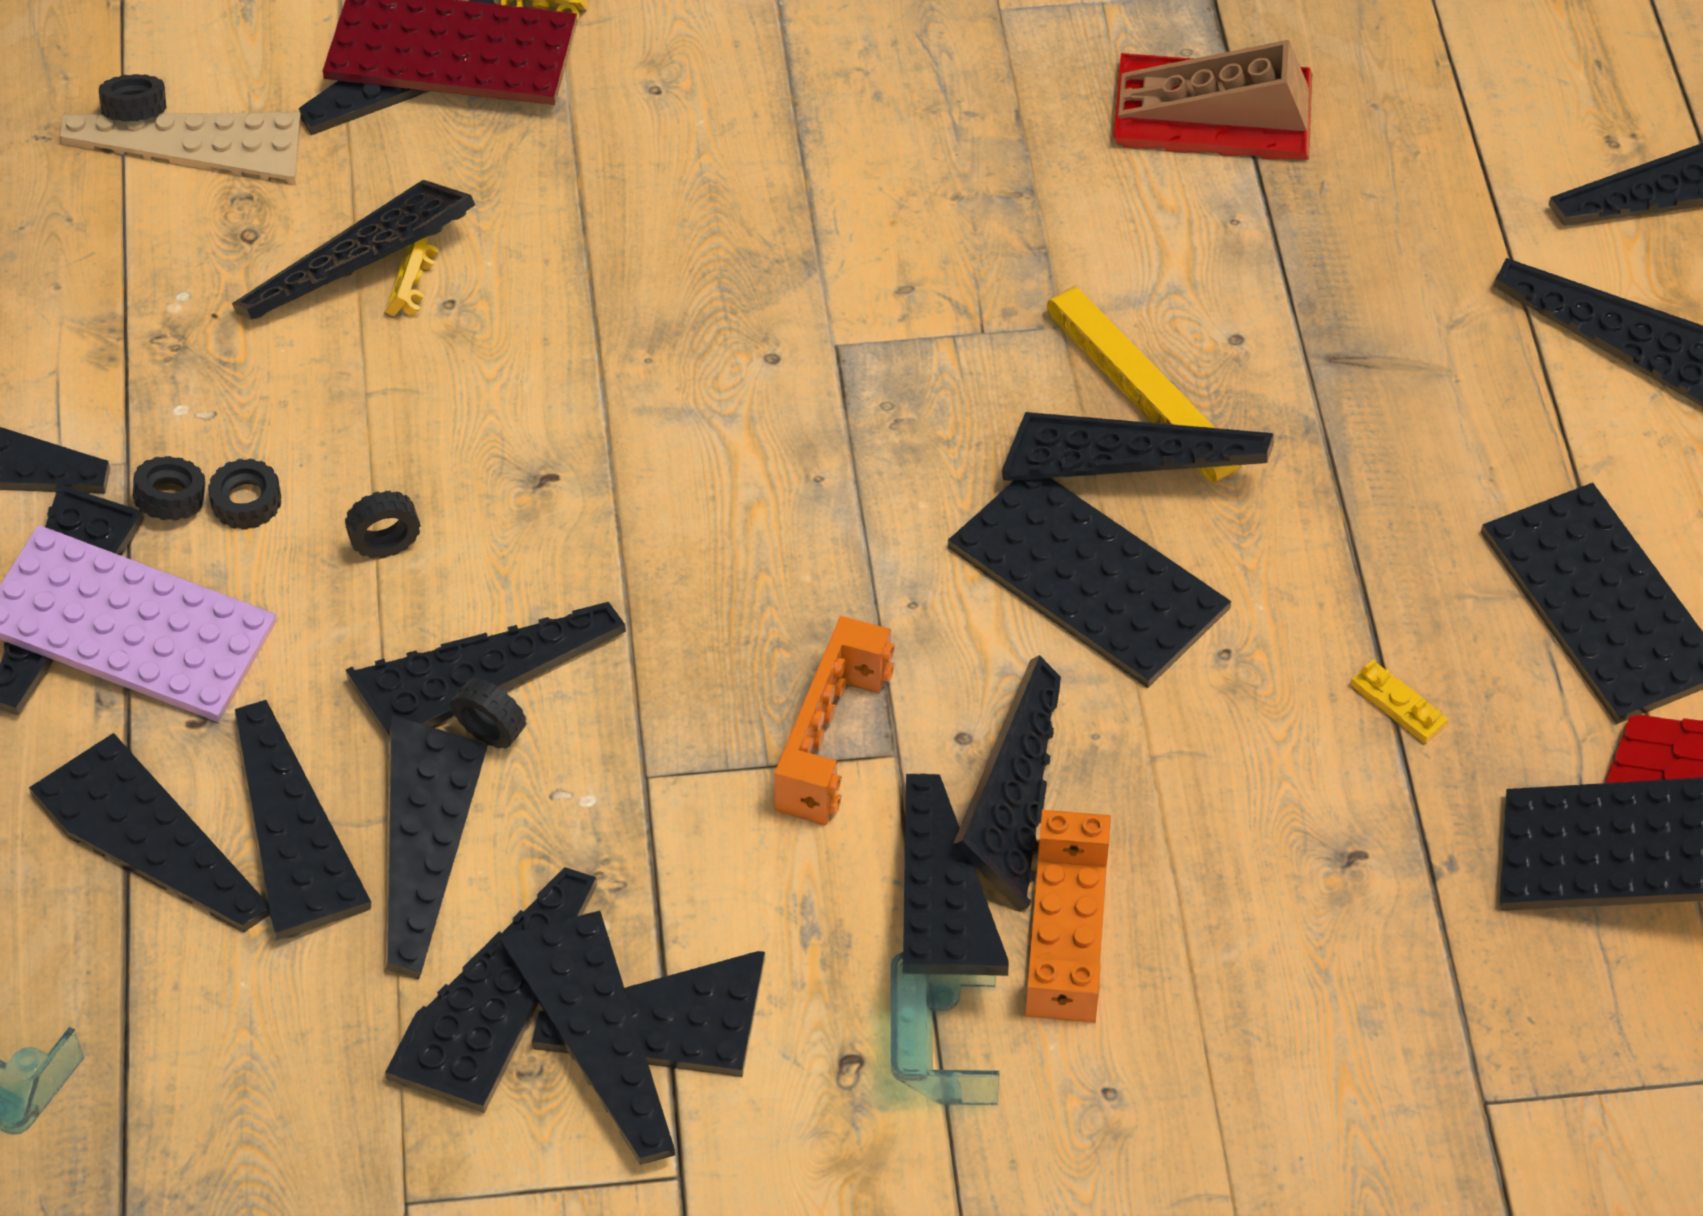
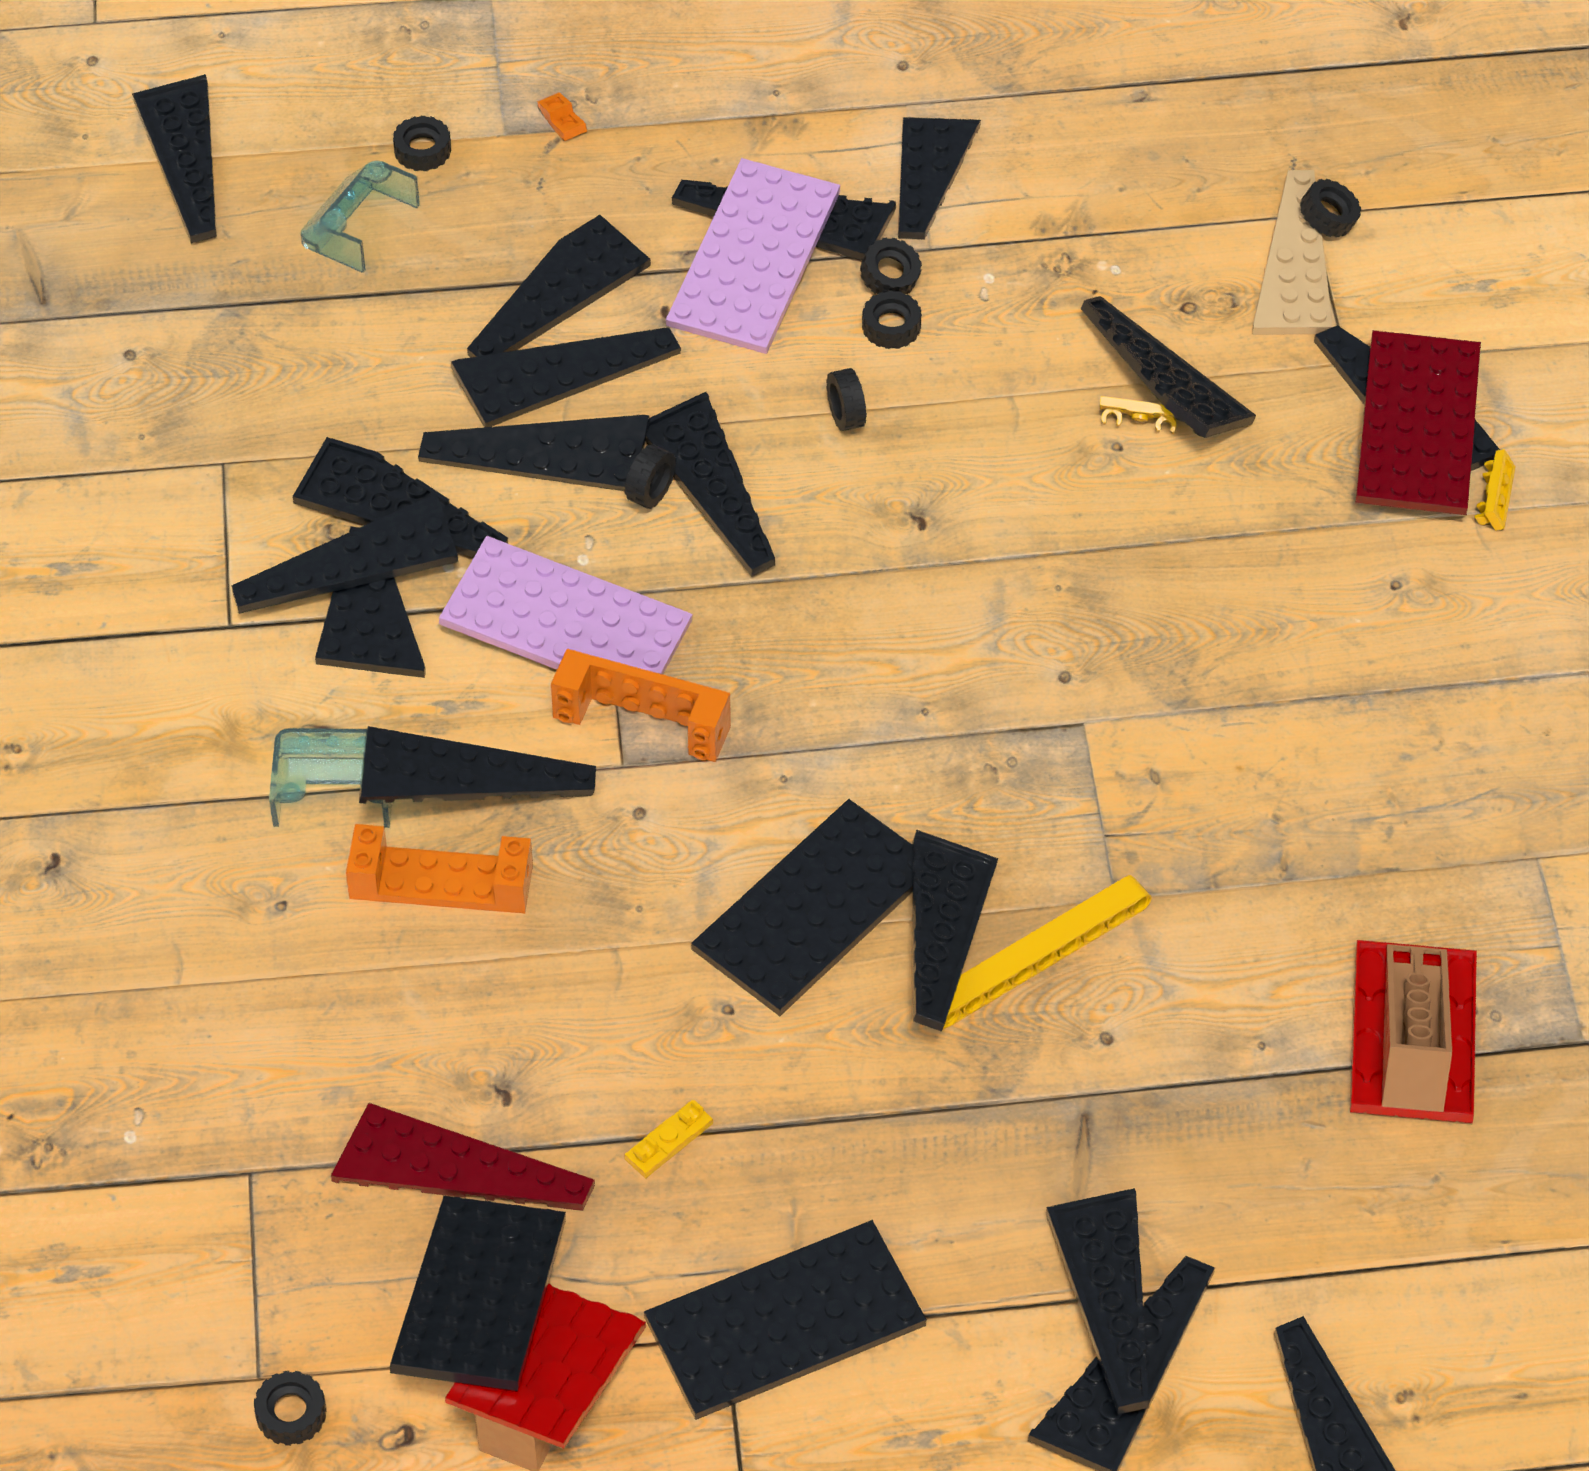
camera: 90 degrees right, 0 degrees up
(687, 810) = (548, 607): none -> lavender plate
(1011, 792) = (573, 832): black wing -> none
(1448, 932) = (425, 1157): none -> dark red wing
(1530, 336) = (1104, 1267): none -> black wing

